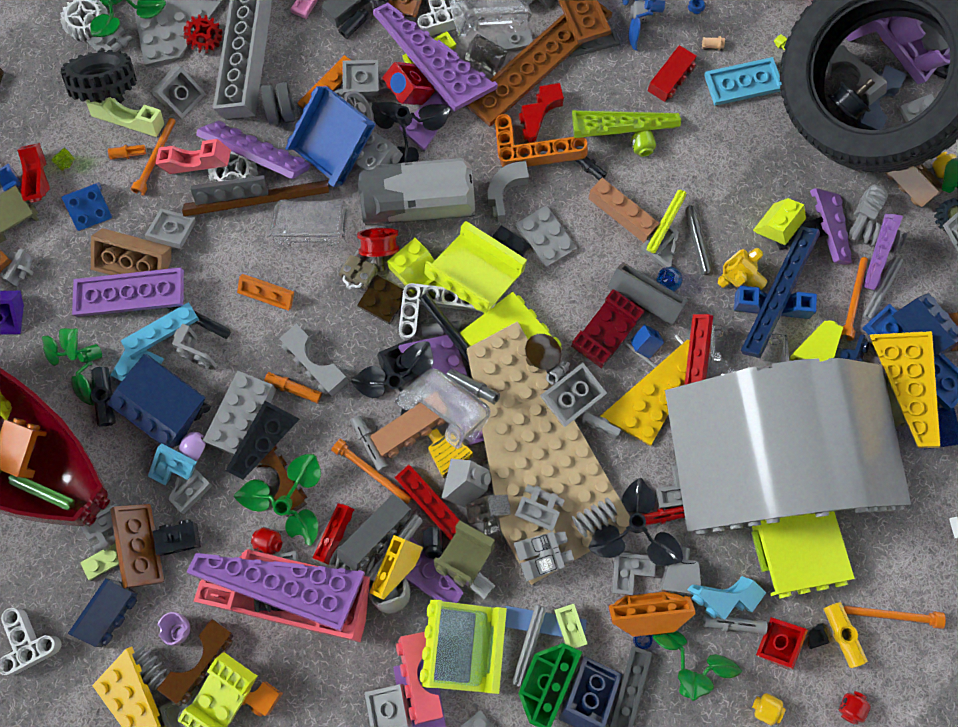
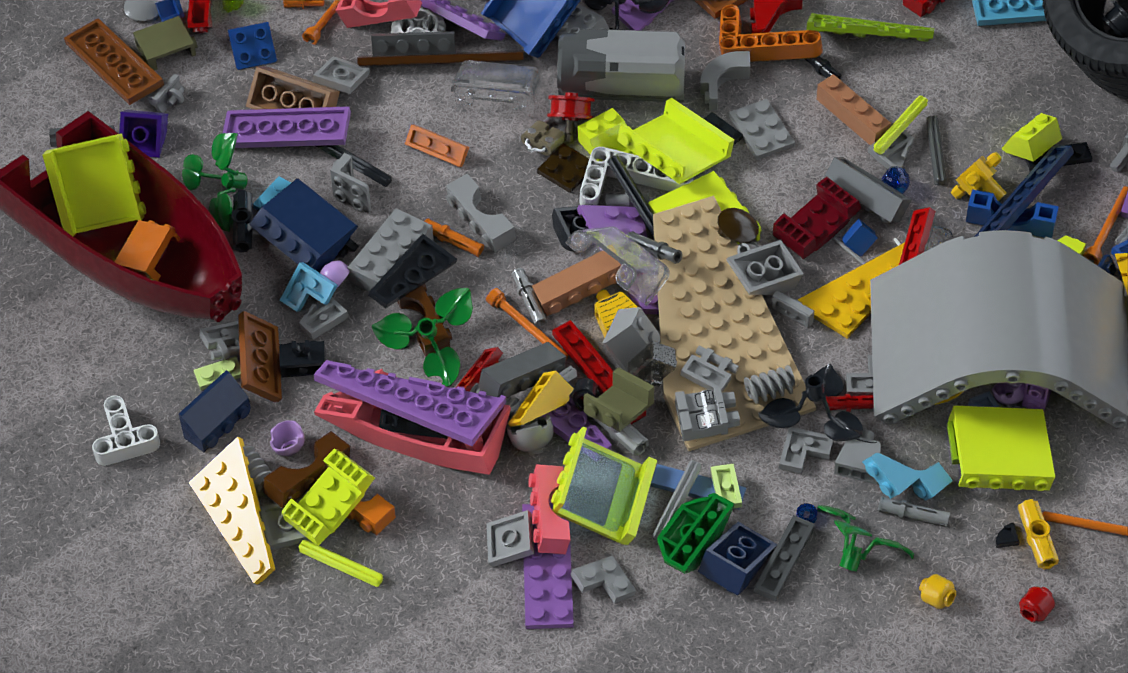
camera: 10 degrees right, 20 degrees down
(159, 330) = (312, 165): medium azure plate -> none
(266, 541) = (402, 368): red head -> none
(372, 379) = (542, 239): black plant -> none
(643, 143) = (888, 51): lime head -> none
(651, 613) = (818, 485): orange wedge -> none
(782, 643) = (964, 534): red slope -> none
(834, 224) = (1095, 149): medium lavender wing -> none

